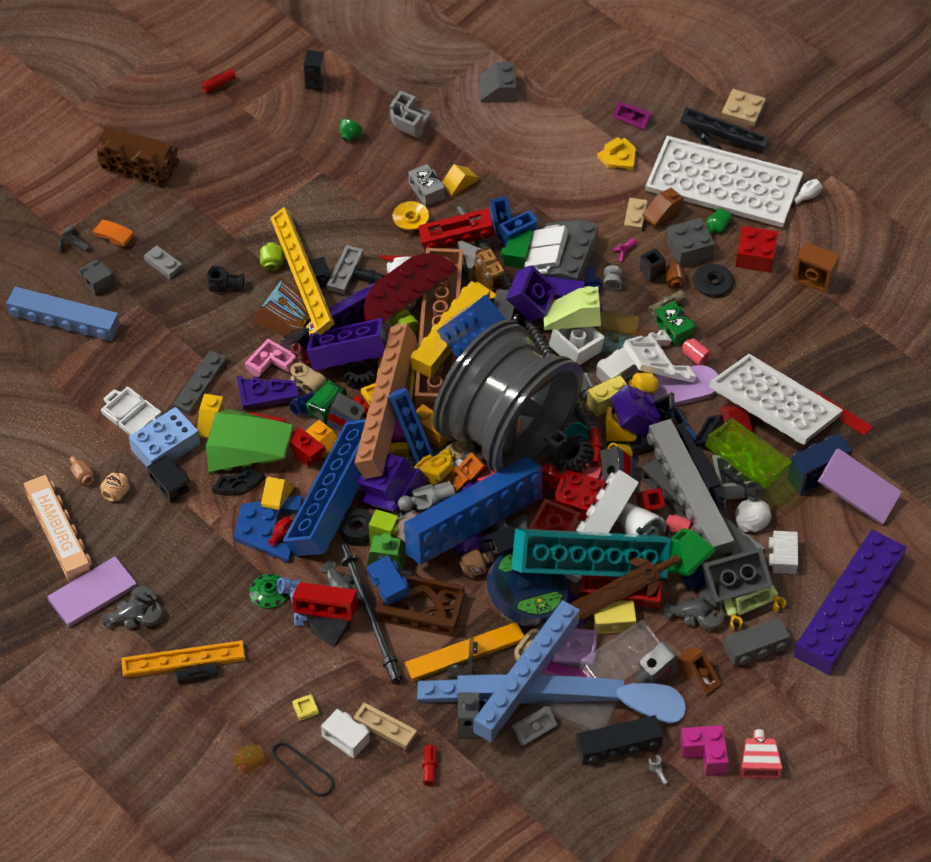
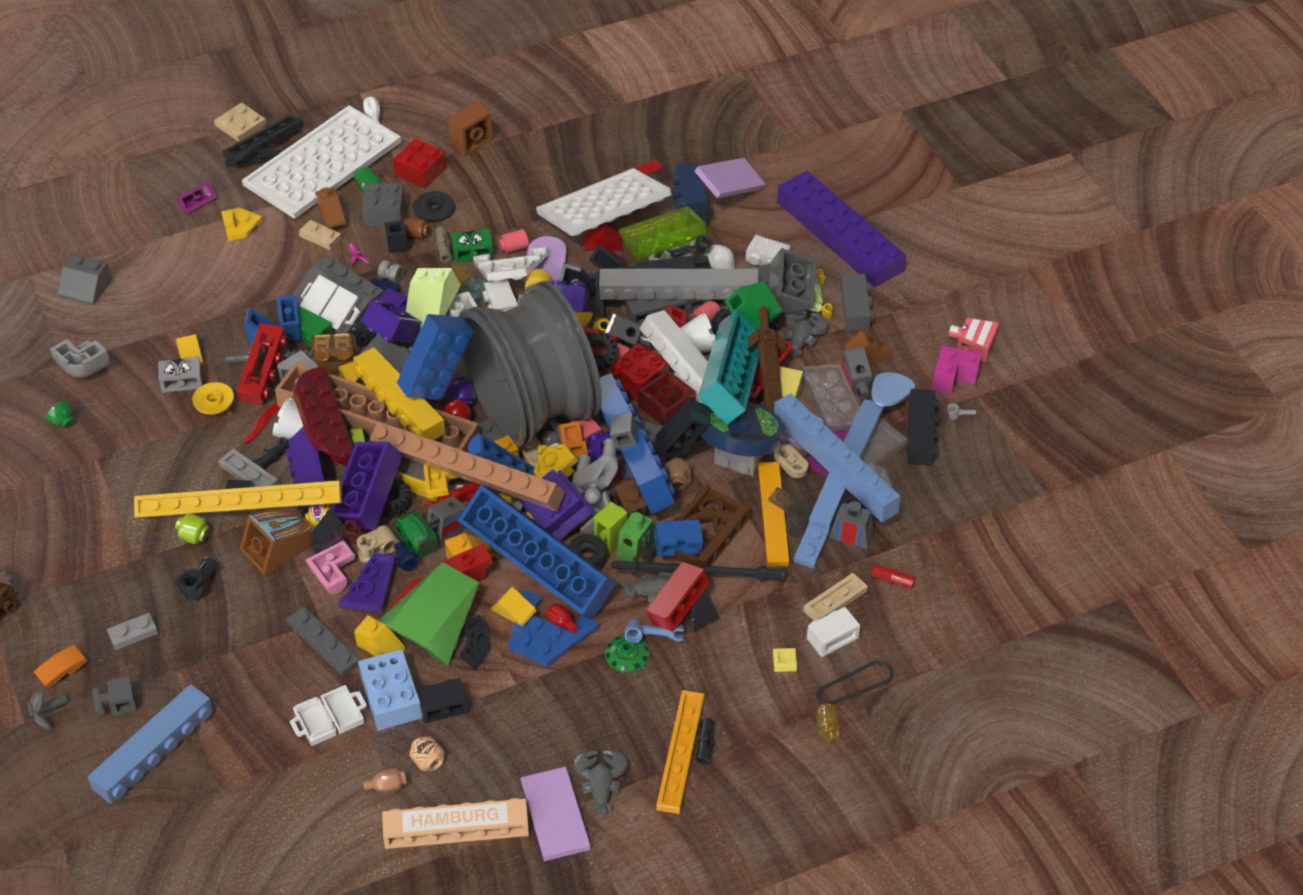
camera: 70 degrees left, 5 degrees down
(460, 491) = (624, 431): none -> dark grey brick

